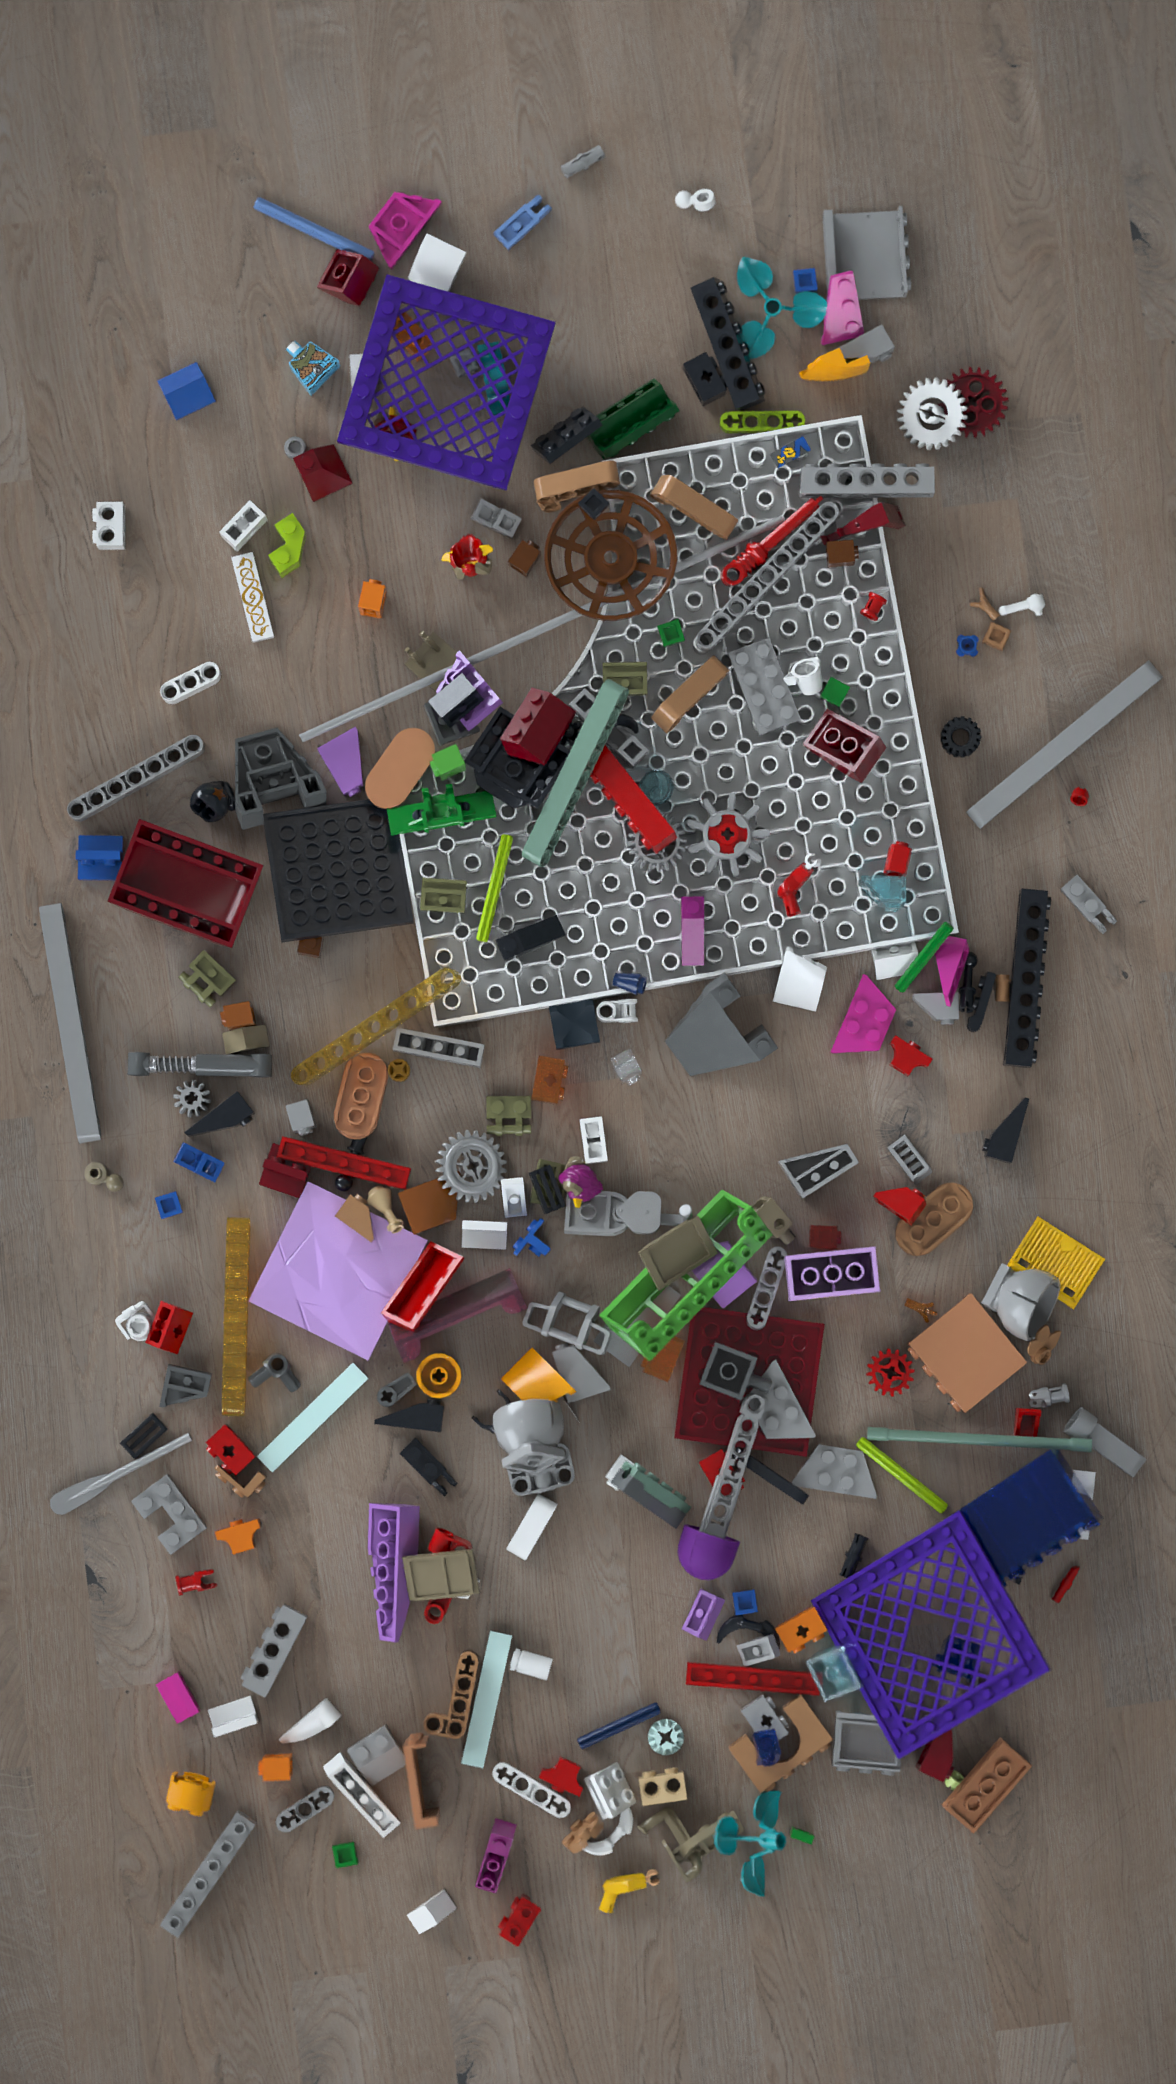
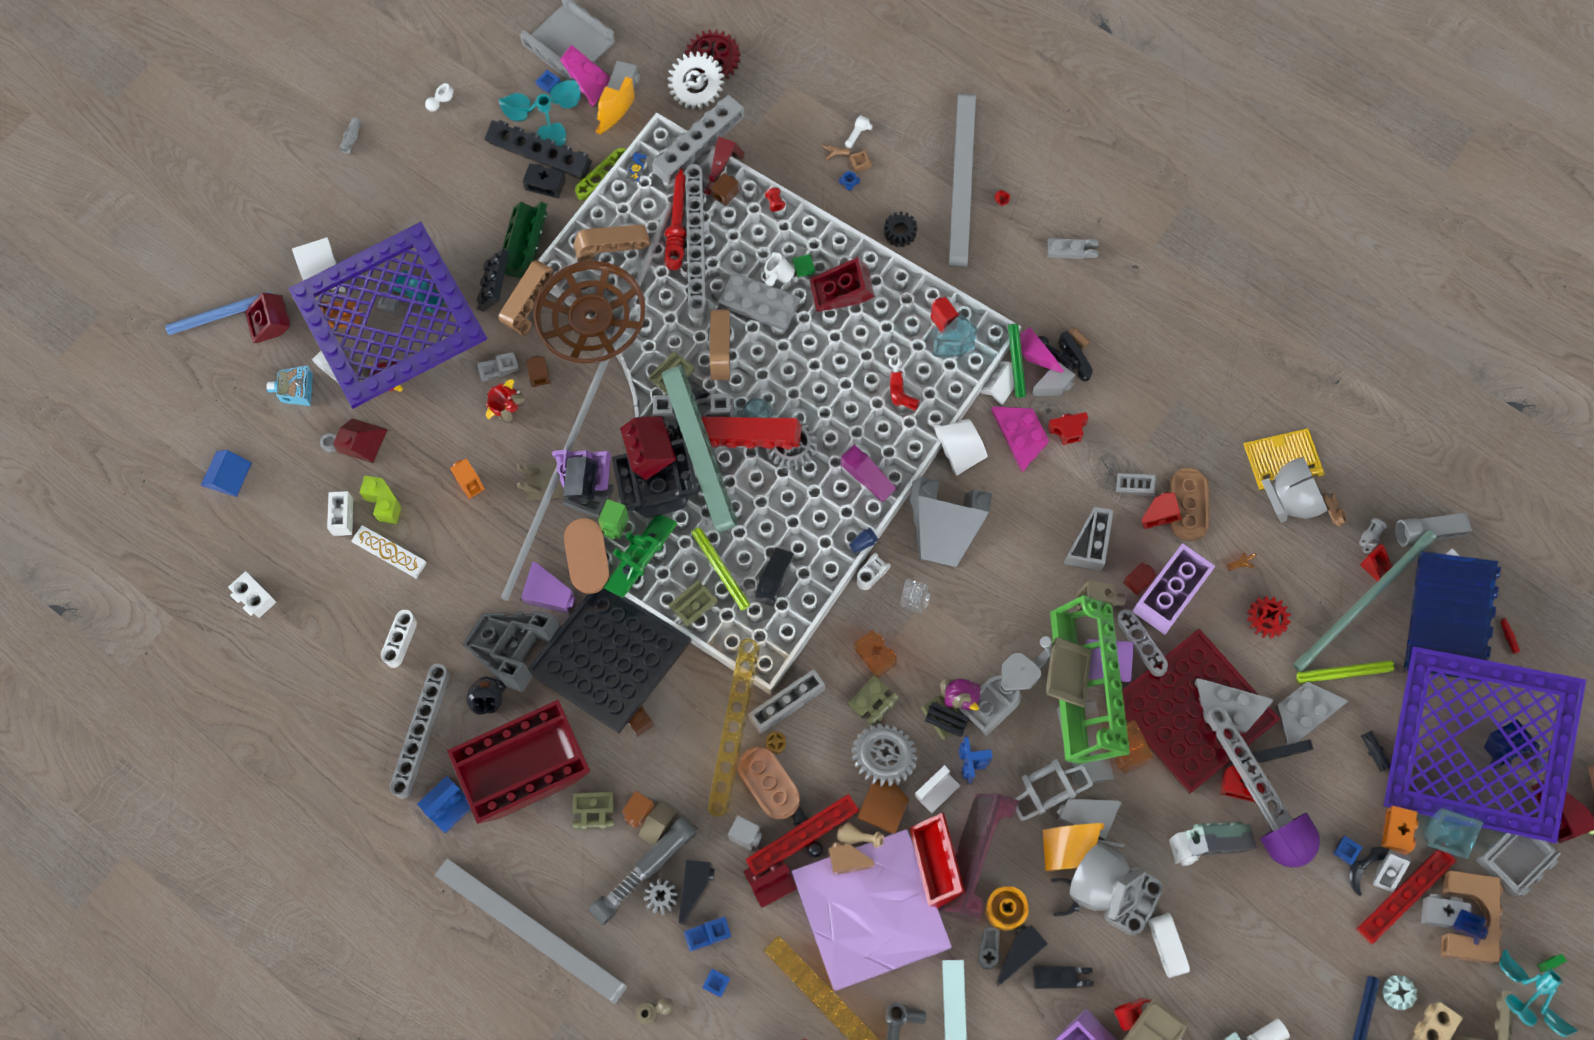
camera: 40 degrees left, 15 degrees down
(400, 224) = (271, 262): dark pink wing -> none
(513, 1197) = (930, 746): white slope -> none
(521, 223) = (346, 198): medium blue hinge -> none
(574, 1024) = (854, 604): black brick -> none
(593, 504) = (548, 291): black plate -> none
(593, 1140) = (942, 660): white brick -> none
(670, 633) = (672, 324): green tile -> none
(703, 1614) = (1331, 887): medium lavender slope -> none
(732, 1372) = (1182, 711): dark grey brick -> none
(737, 826) = (828, 390): light grey gear -> none
(966, 1354) = (1299, 560): nougat panel -> none
(1004, 1138) = (1176, 417): black slope -> none
(1012, 1055) = (1074, 316): black brick -> none

